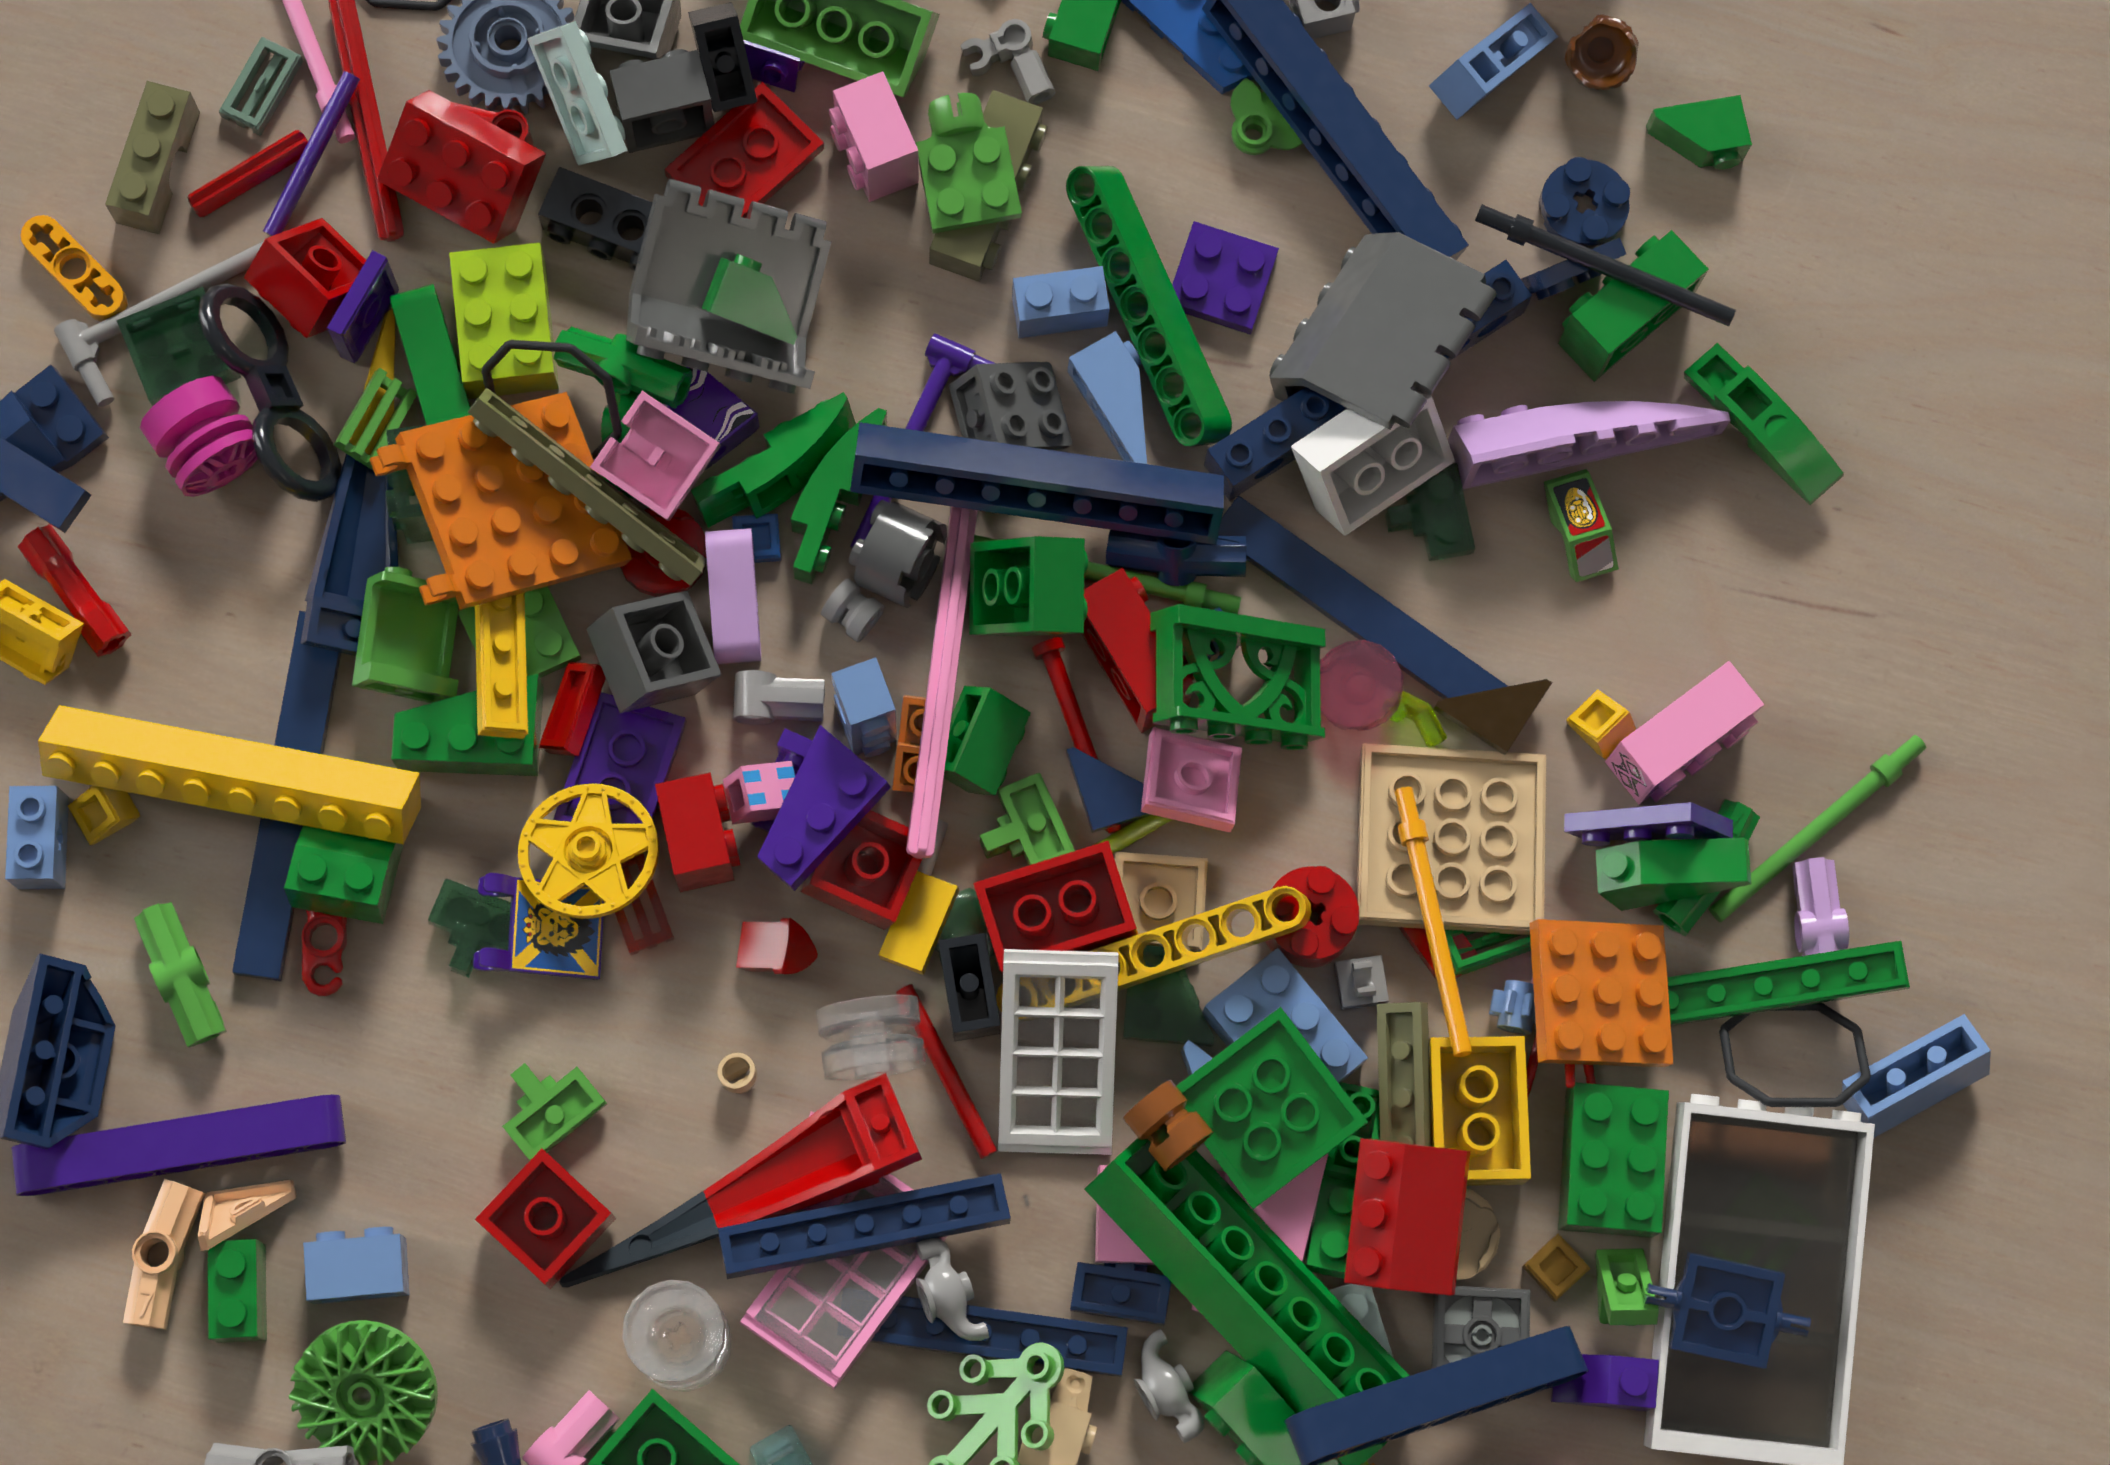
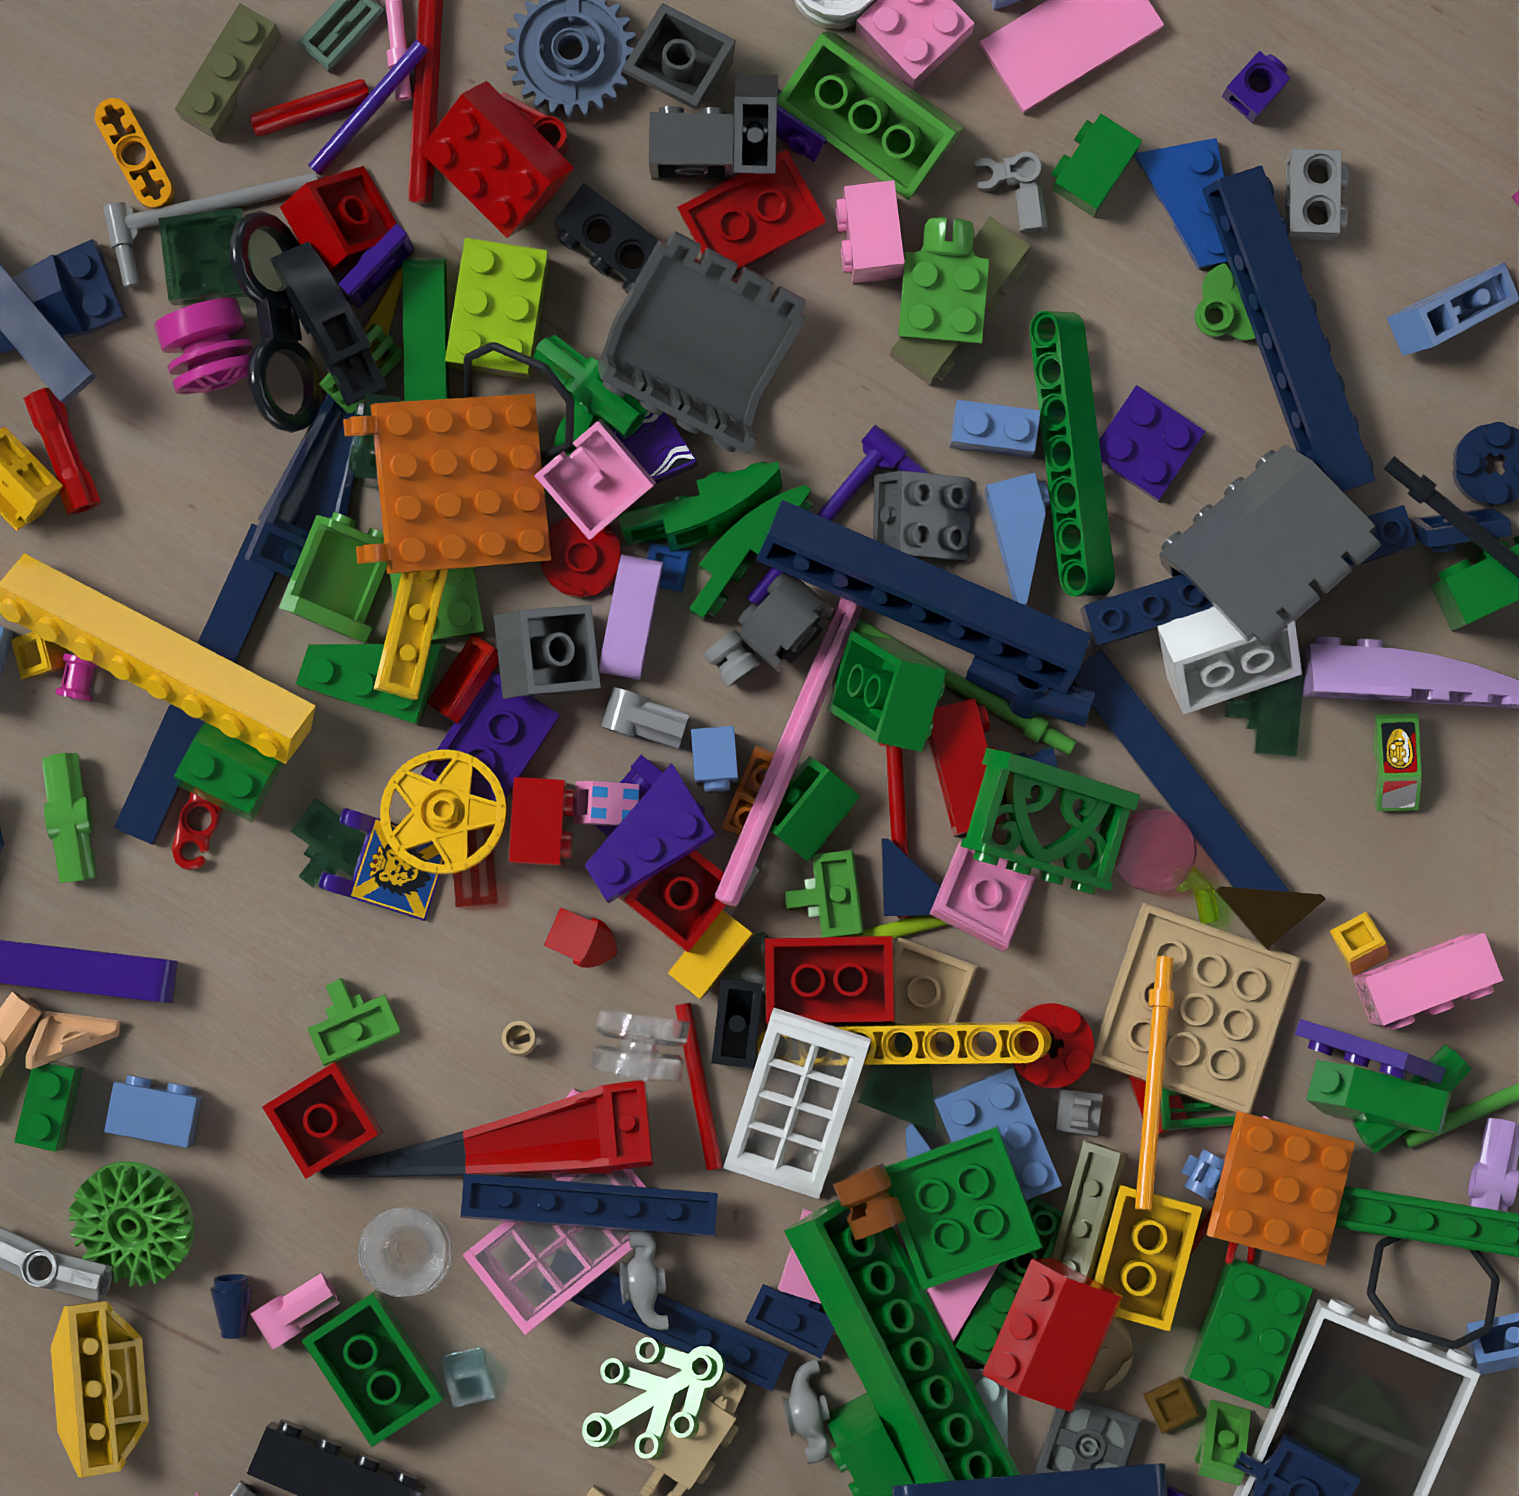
camera: 25 degrees right, 10 degrees up
(151, 823) = (77, 678): none -> dark pink bush
(329, 372) = (329, 321): none -> black slope
(578, 93) = (617, 122): light aqua plate -> none
(601, 498) = (517, 479): olive plate -> none
(749, 298) = (715, 356): green slope -> none

